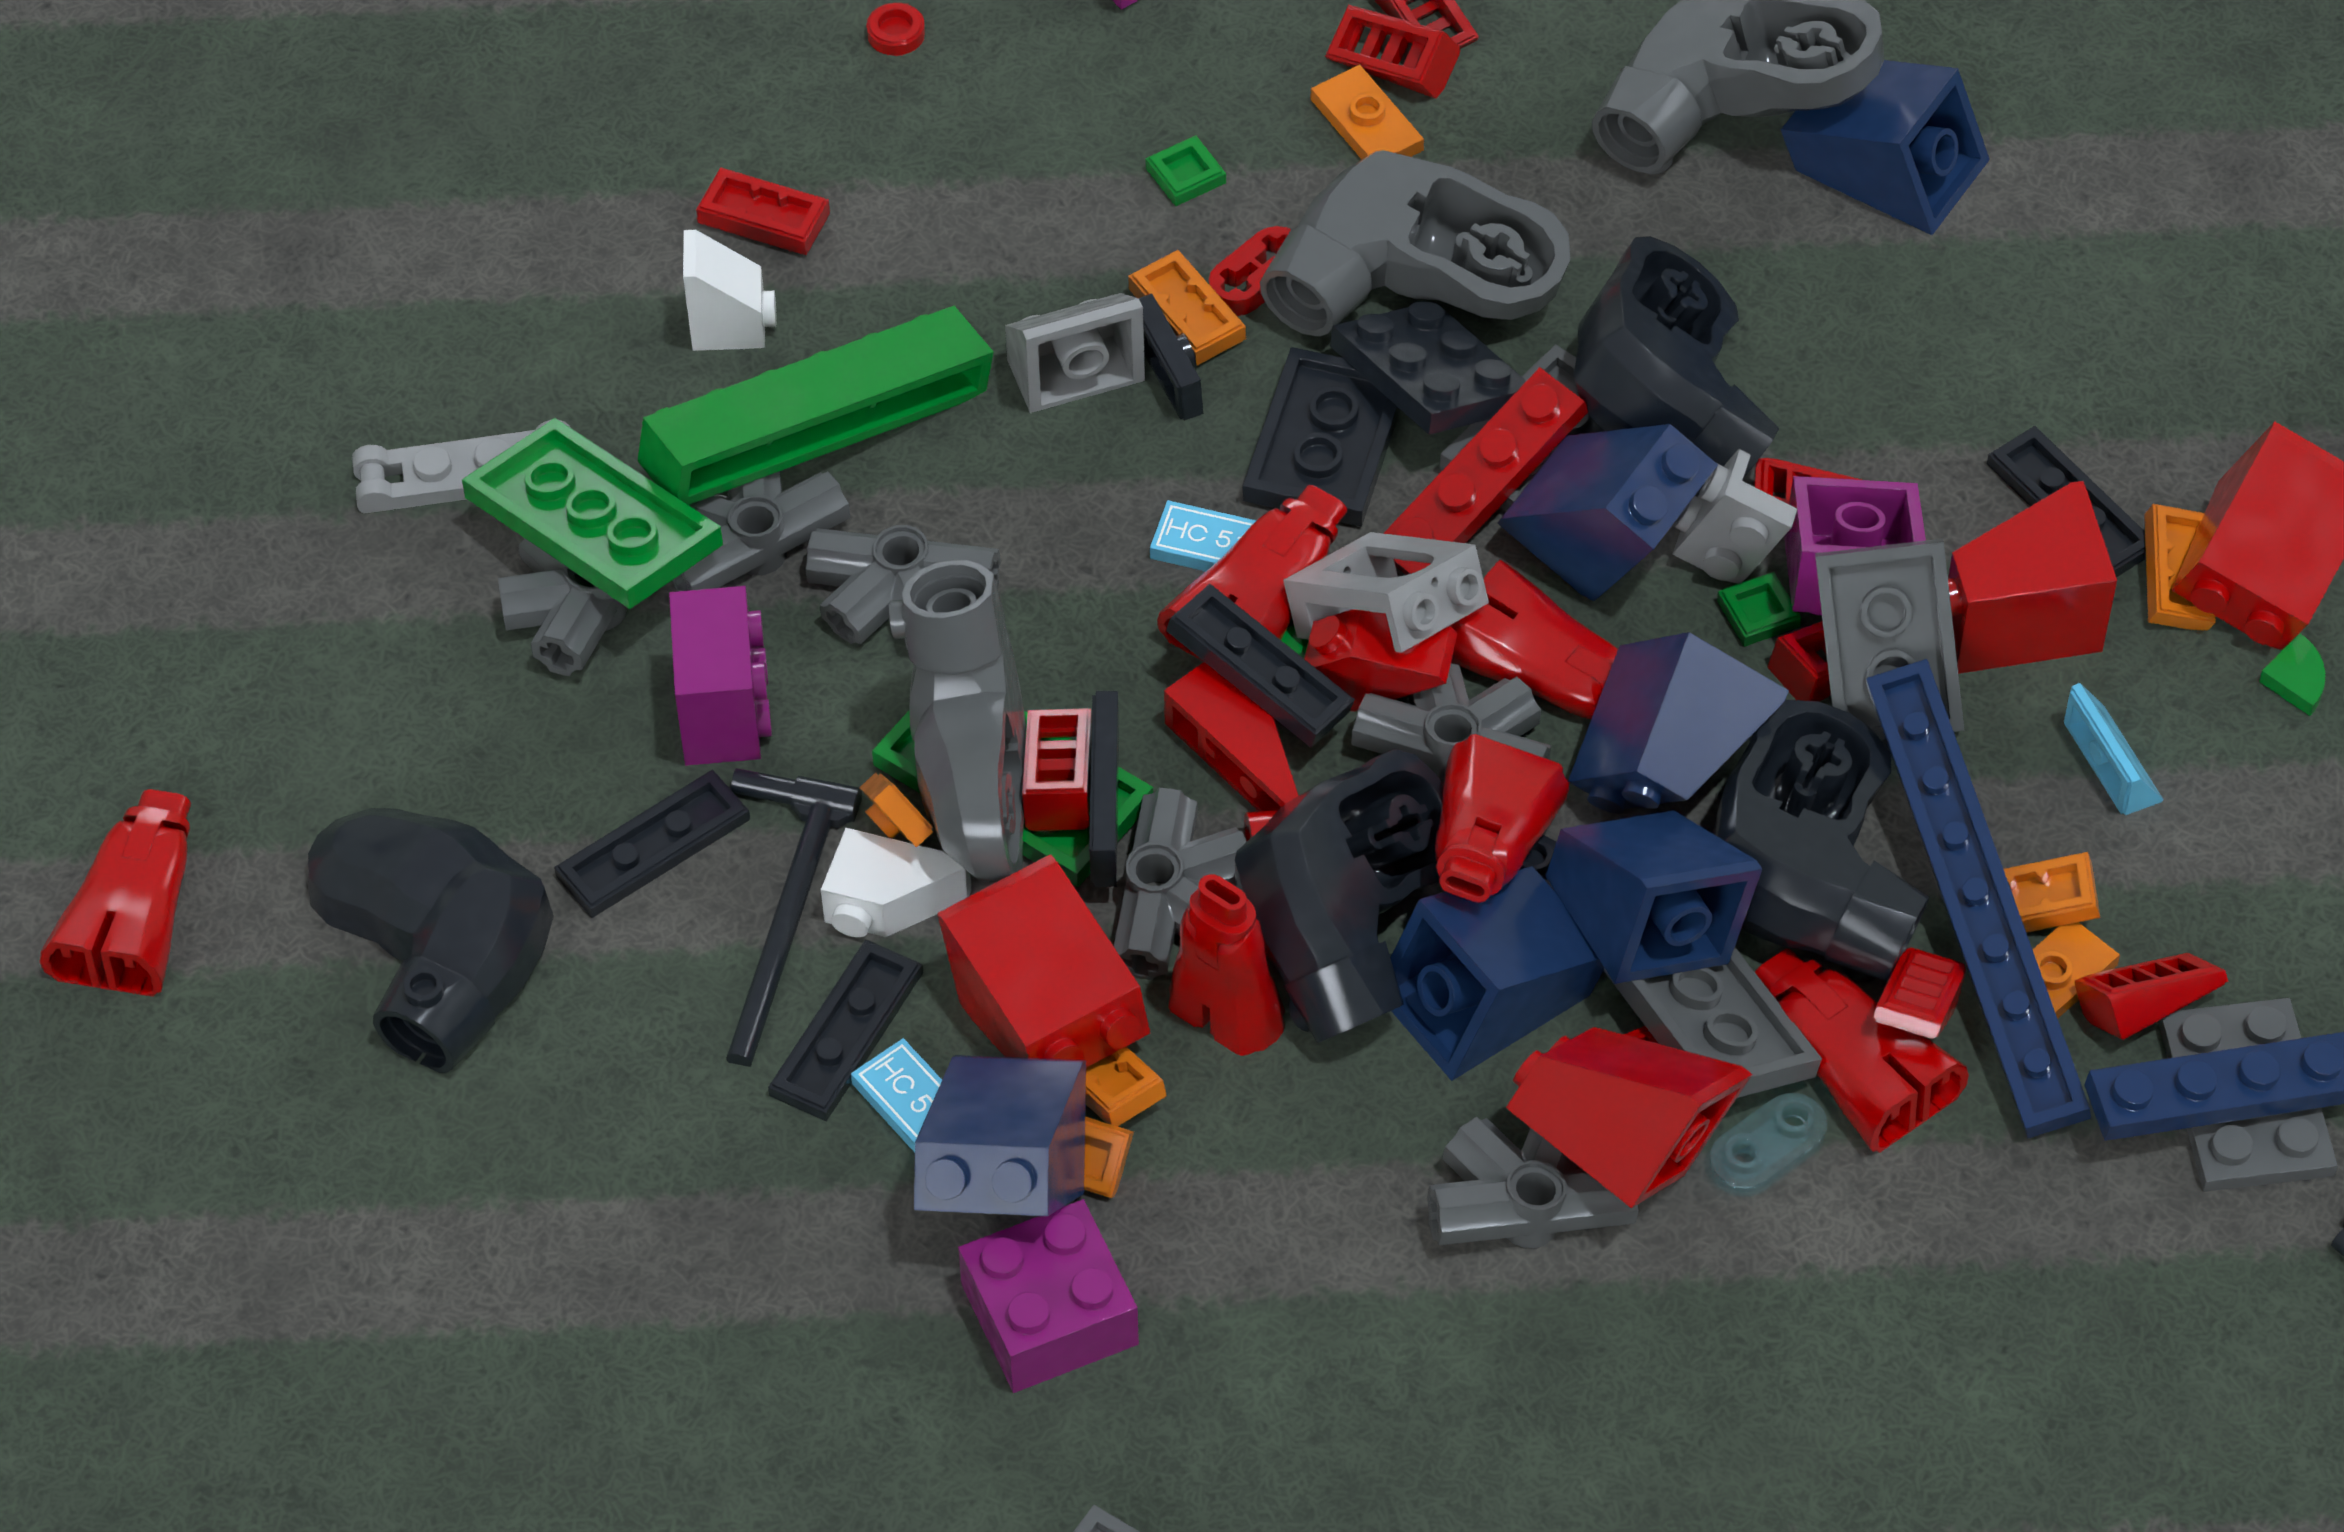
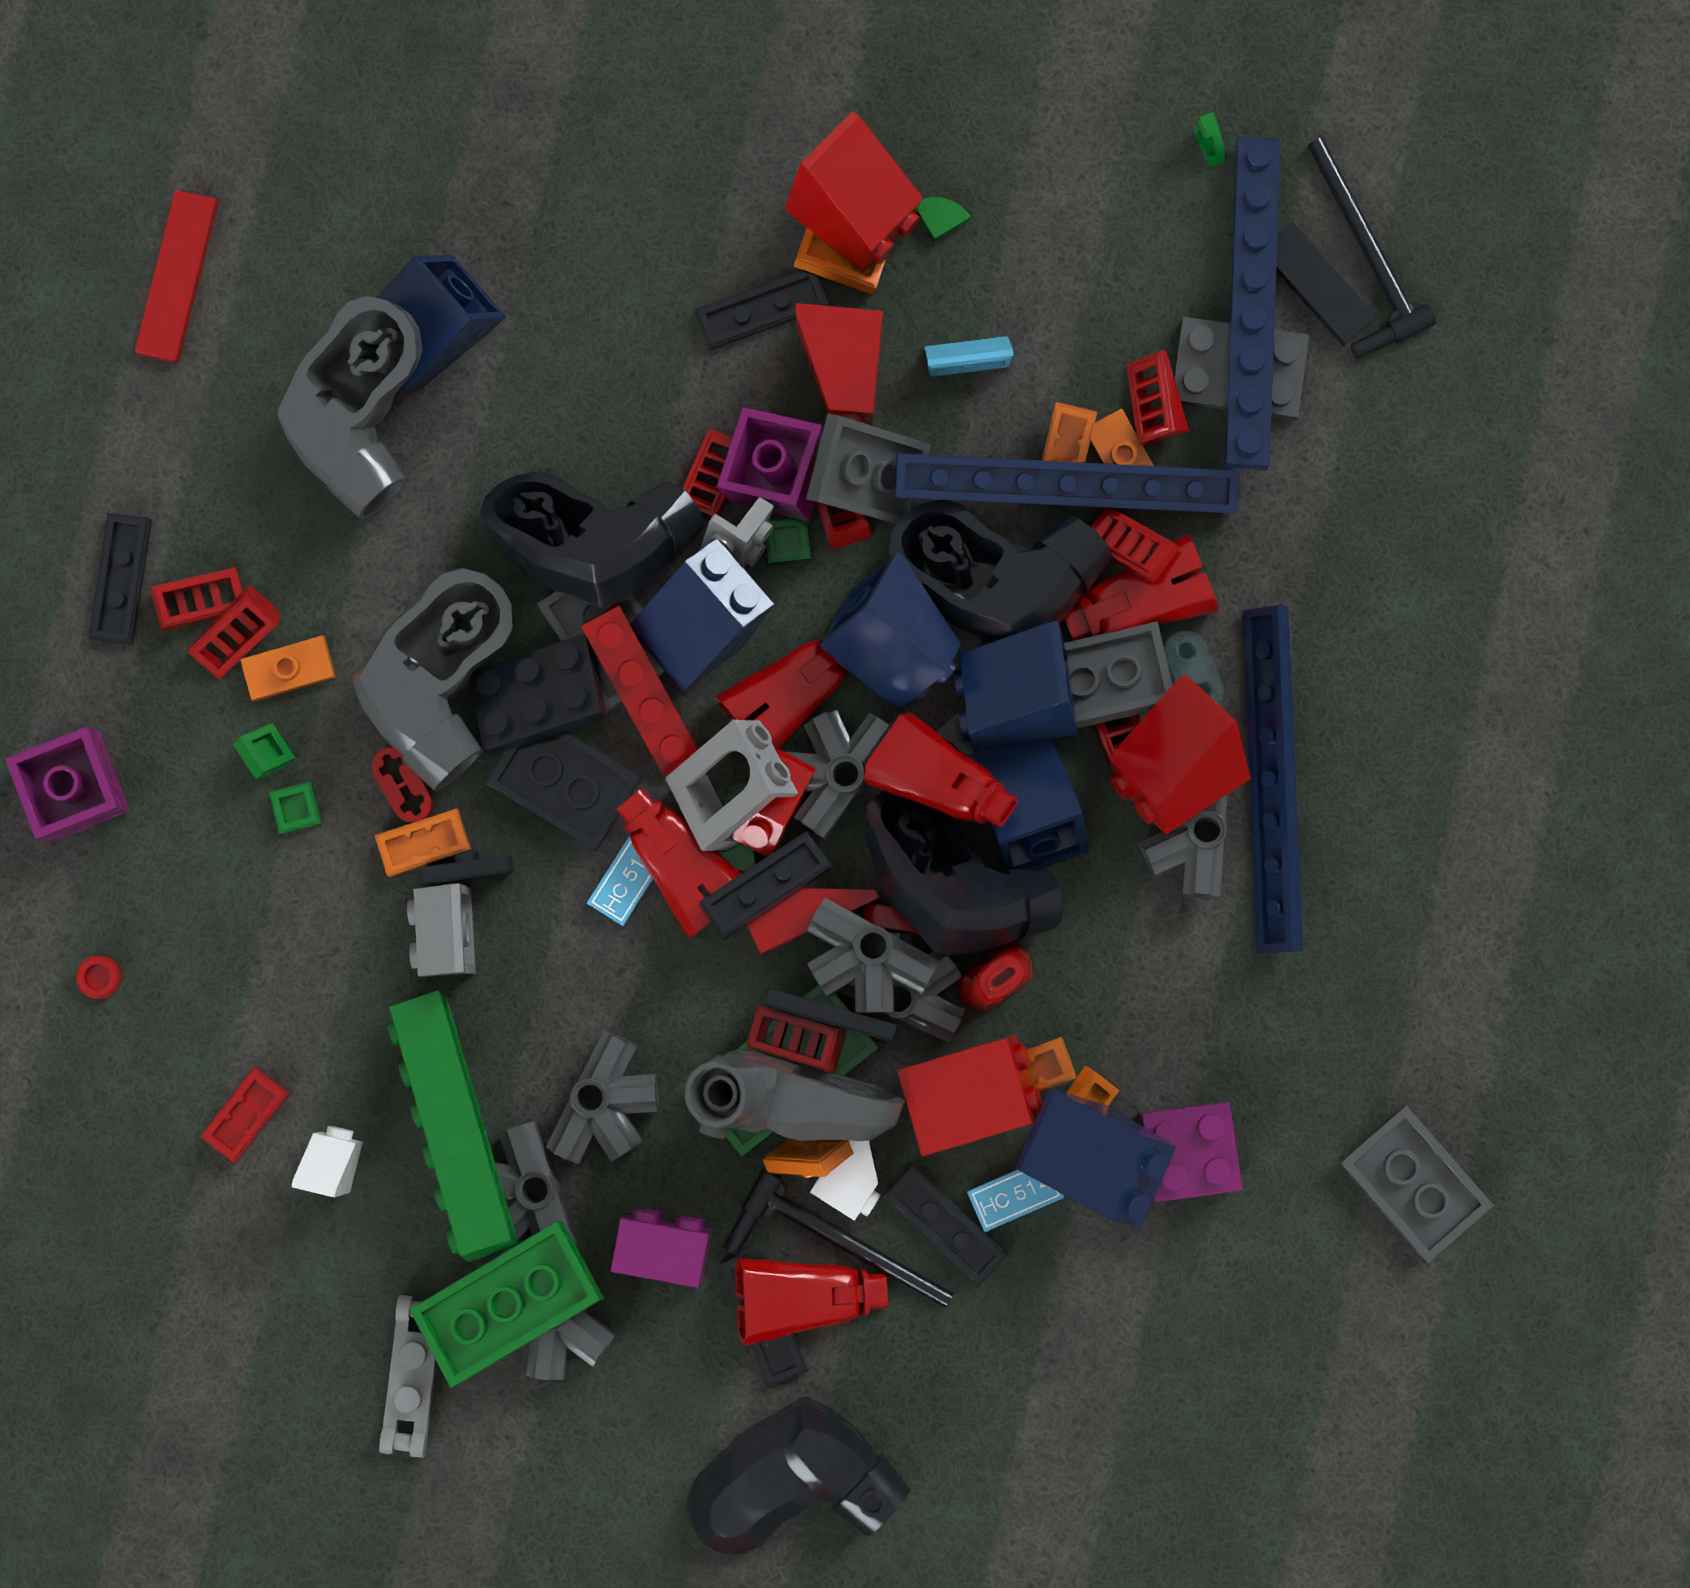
camera: 70 degrees left, 30 degrees up
(691, 853) = (801, 1297): none -> red piece
(1184, 792) = (871, 976): none -> dark grey piece
(1248, 113) = (264, 751): none -> green plate
(1668, 1272) = (1272, 780): none -> dark blue plate

